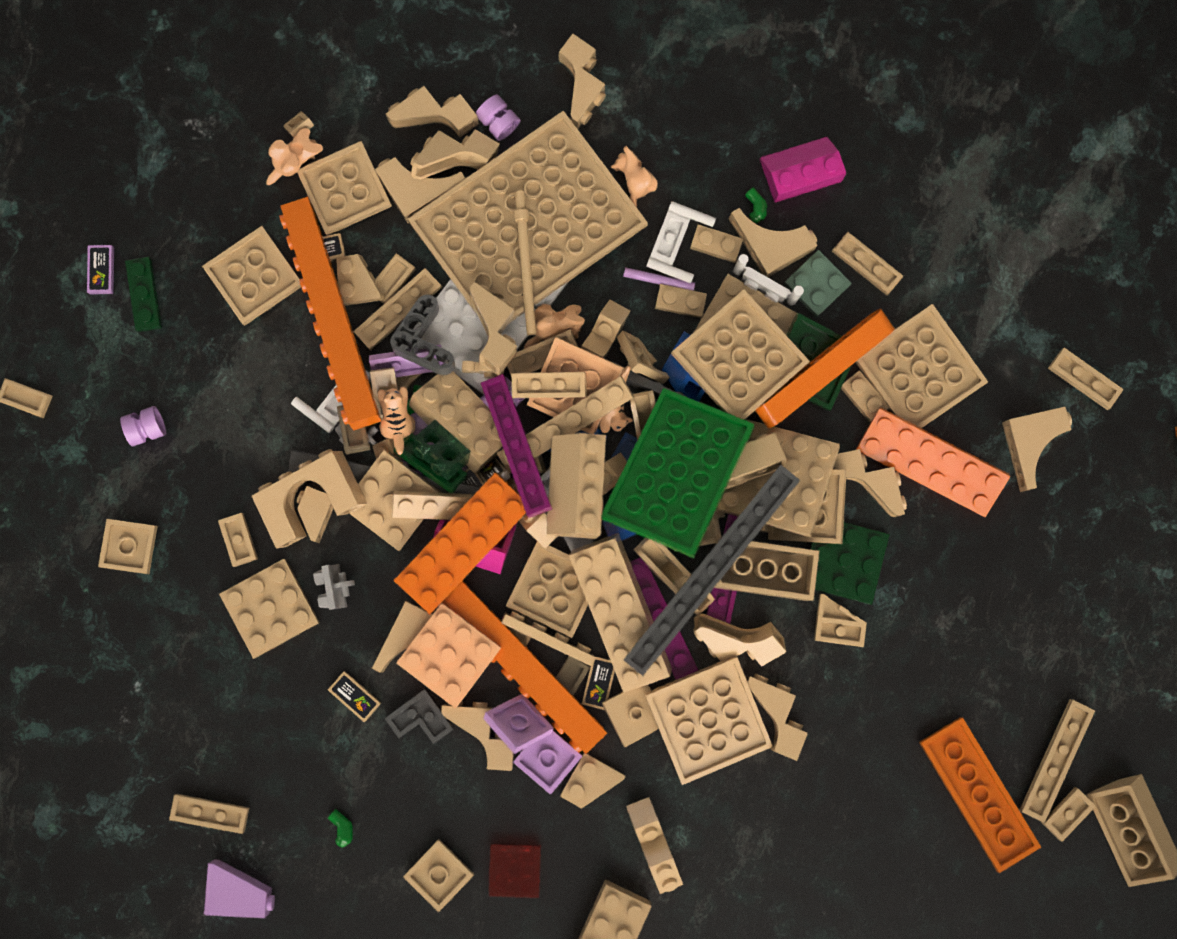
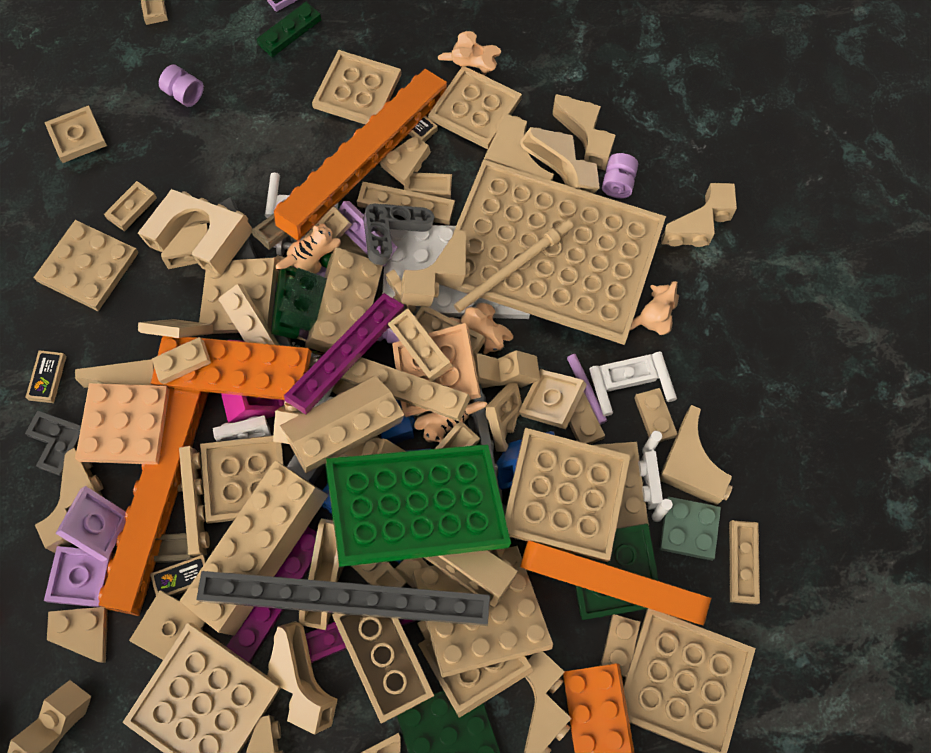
camera: 60 degrees right, 15 degrees down
(297, 123) = (504, 47): tan plate -> none
(335, 586) = (133, 299): light grey hips -> none
(392, 567) = (175, 328): none -> tan tile
(432, 578) = (181, 360): none -> tan plate
(516, 558) = (249, 428): none -> white plate
(653, 312) = (553, 399): none -> tan plate
(760, 206) = (716, 430): green arm -> none
(803, 169) = (779, 445): dark pink slope -> none

